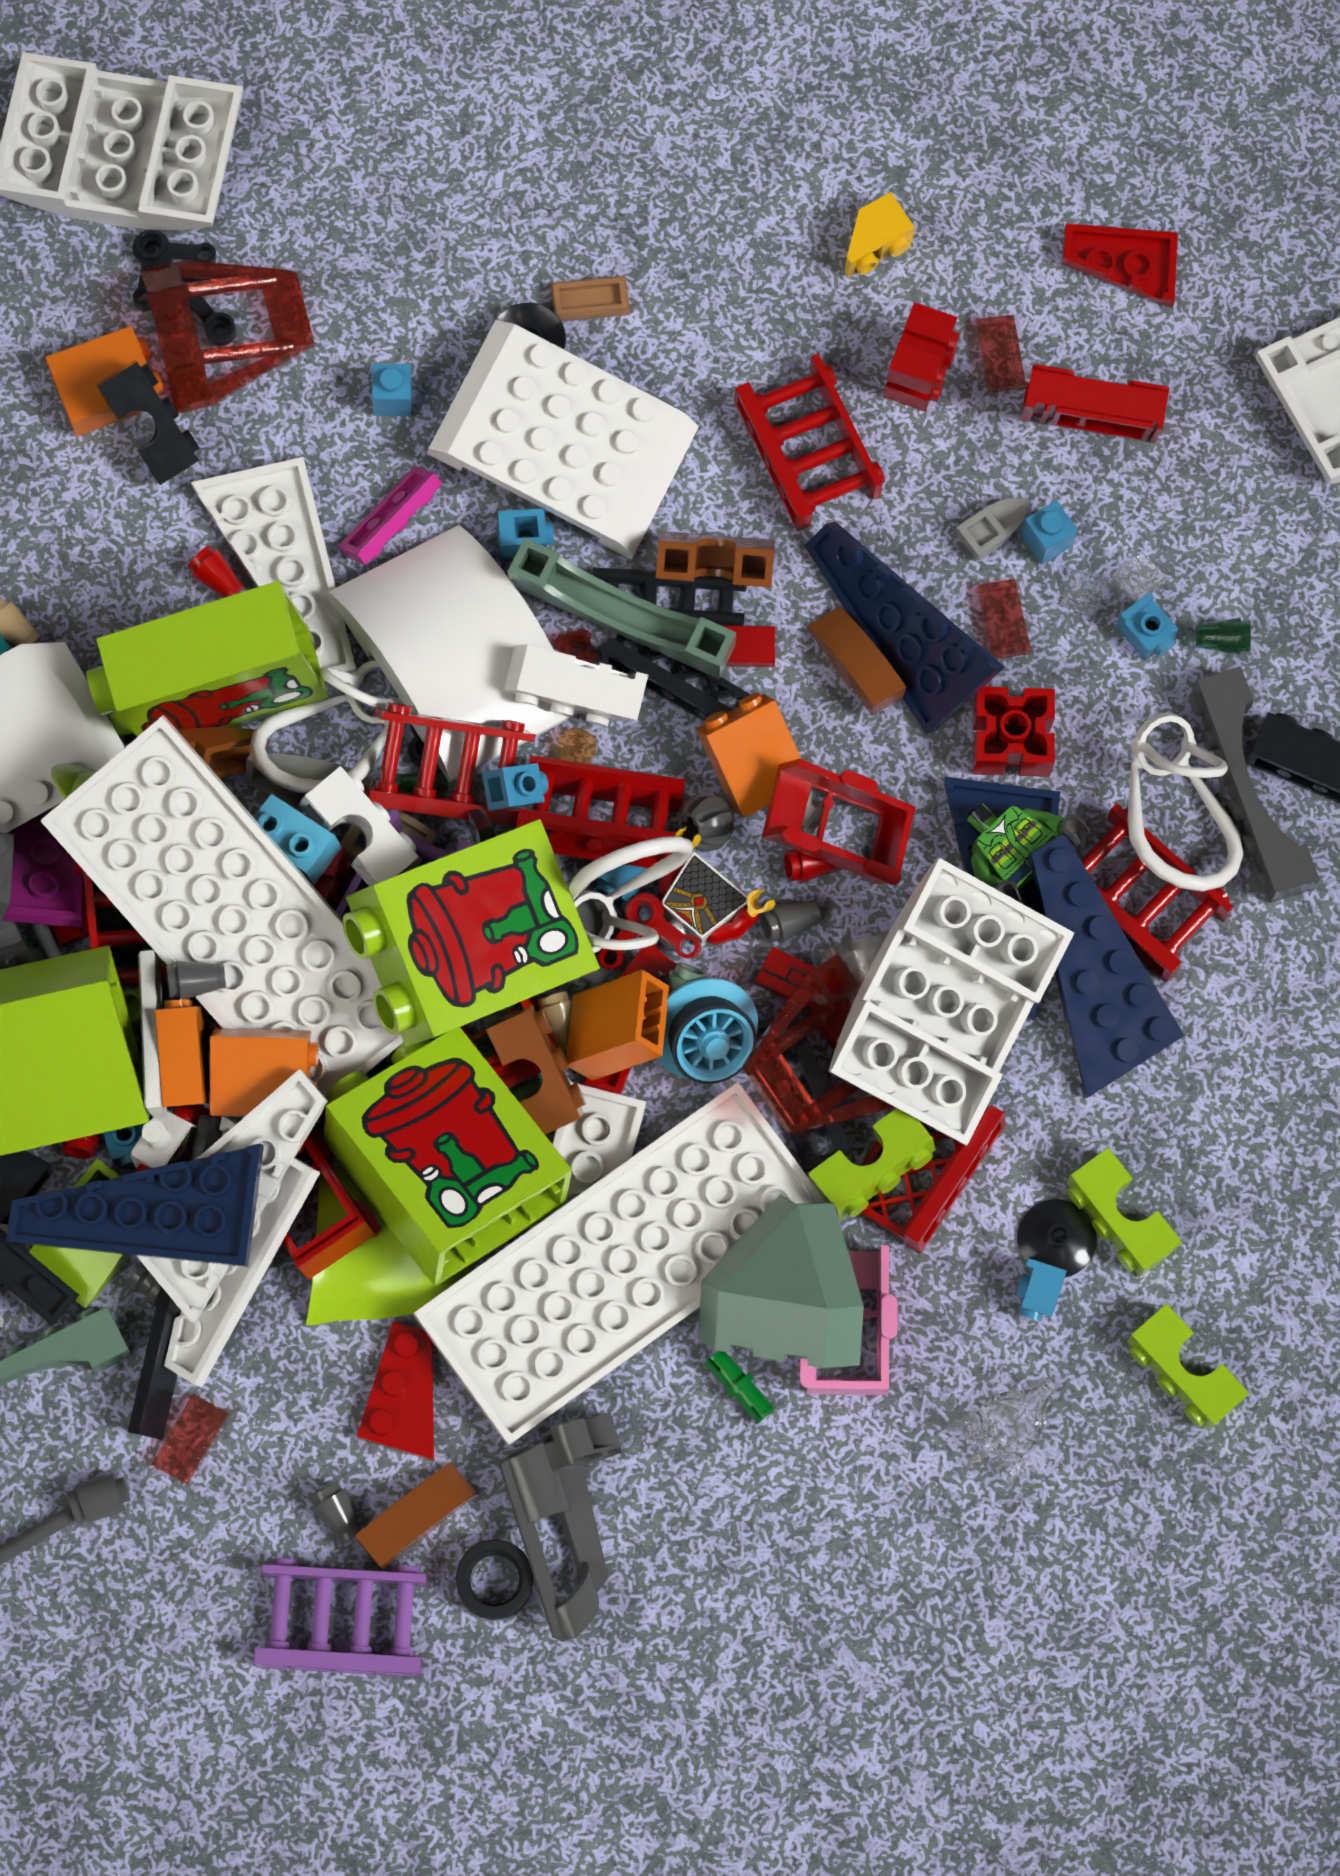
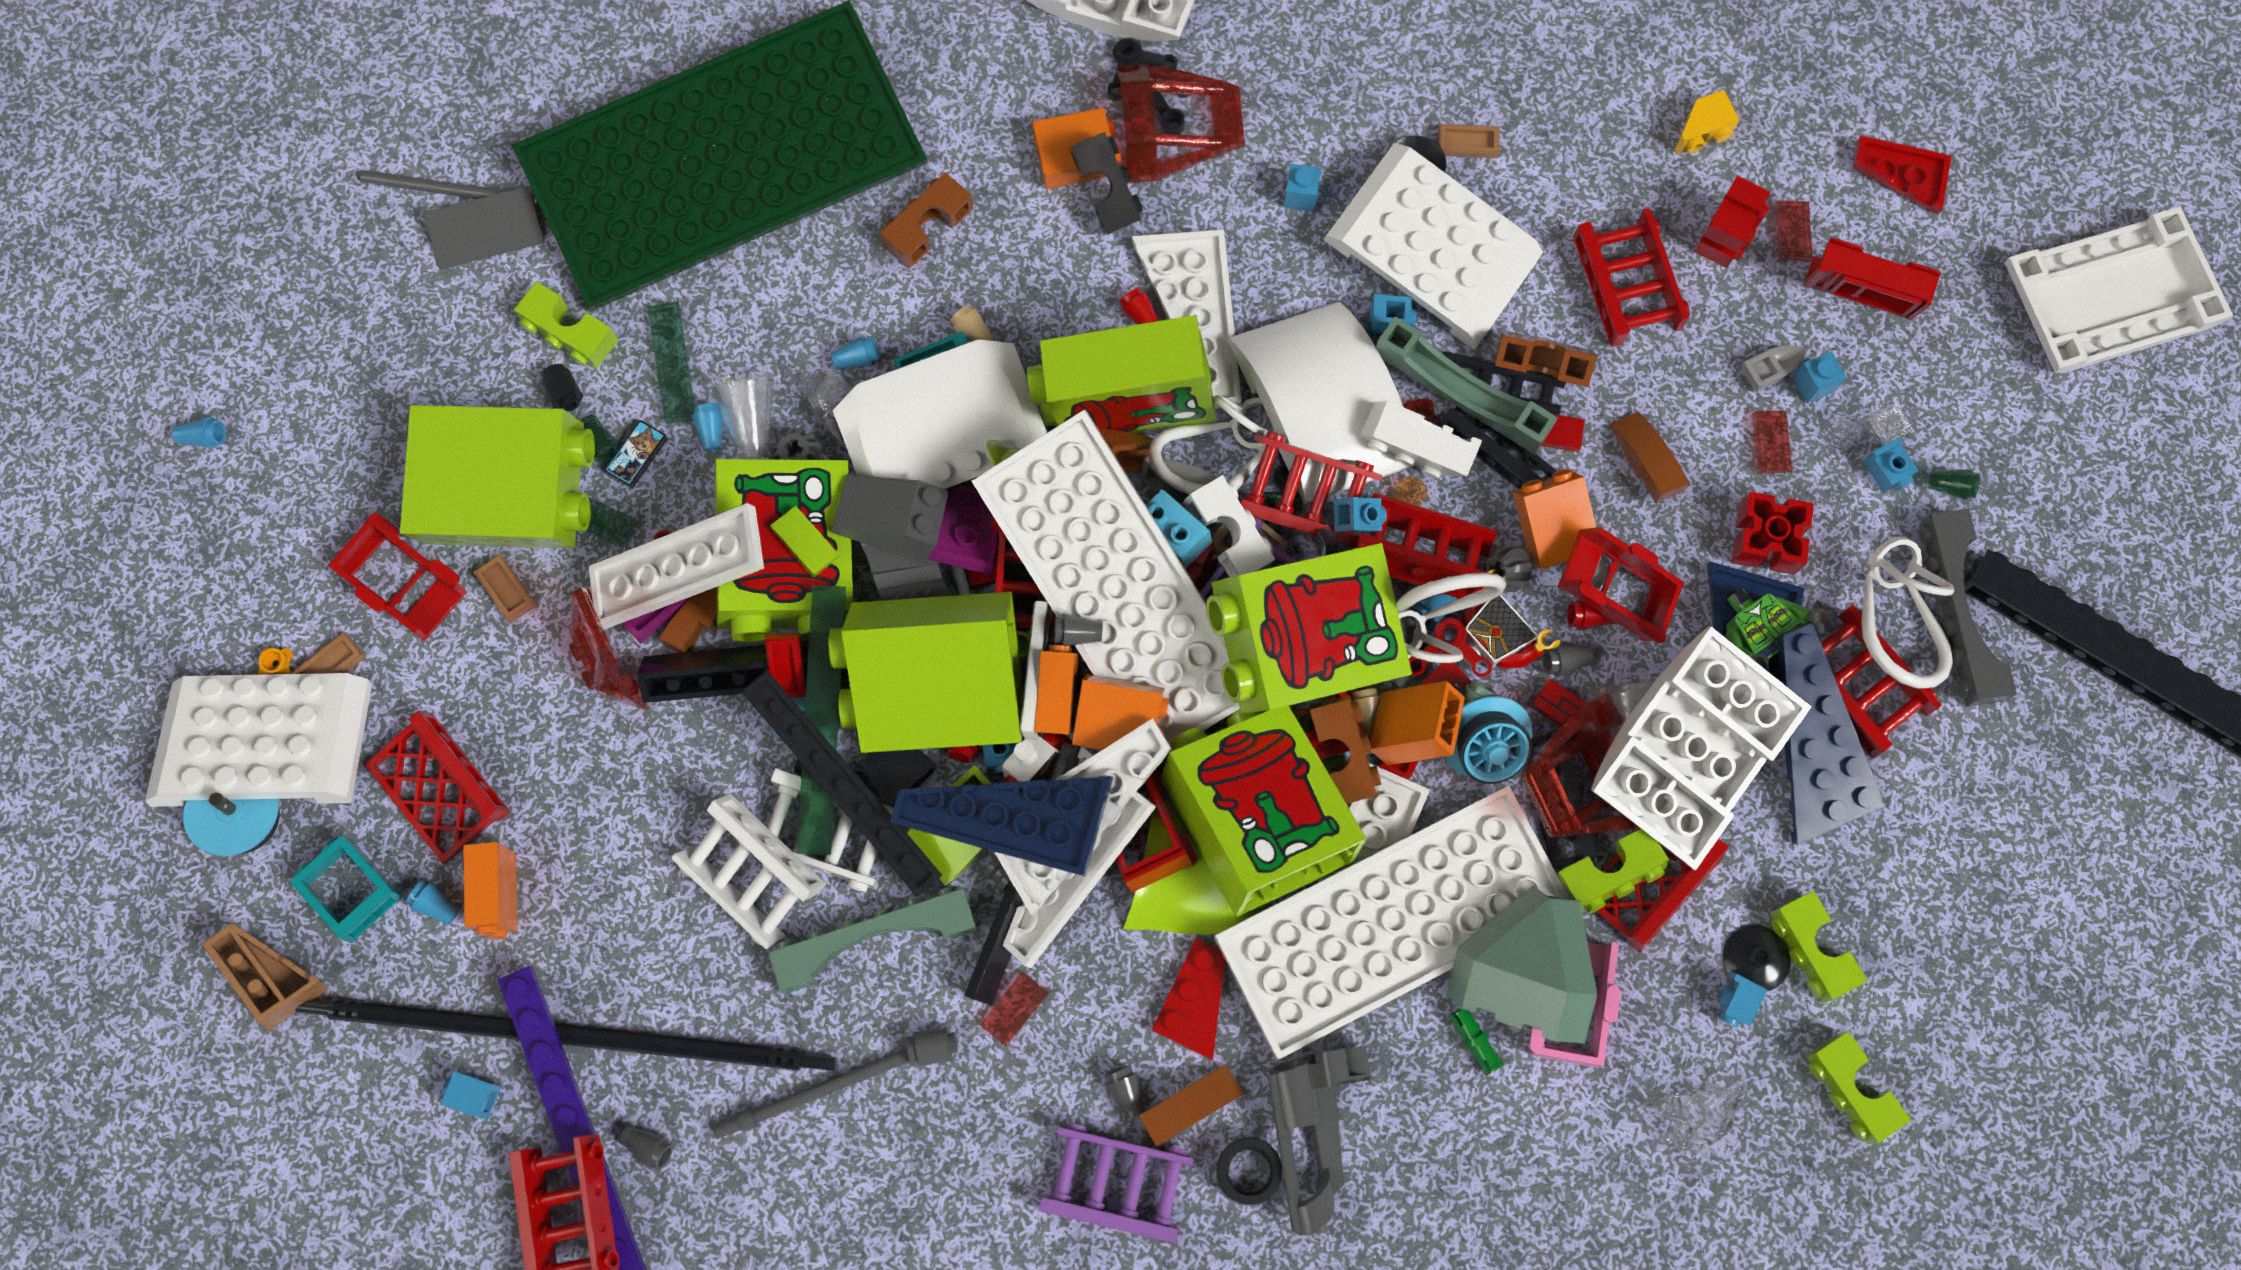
camera: 15 degrees right, 0 degrees up
(390, 515) = (1286, 285): dark pink plate -> none
(919, 642) = (1708, 450): dark blue wing -> none

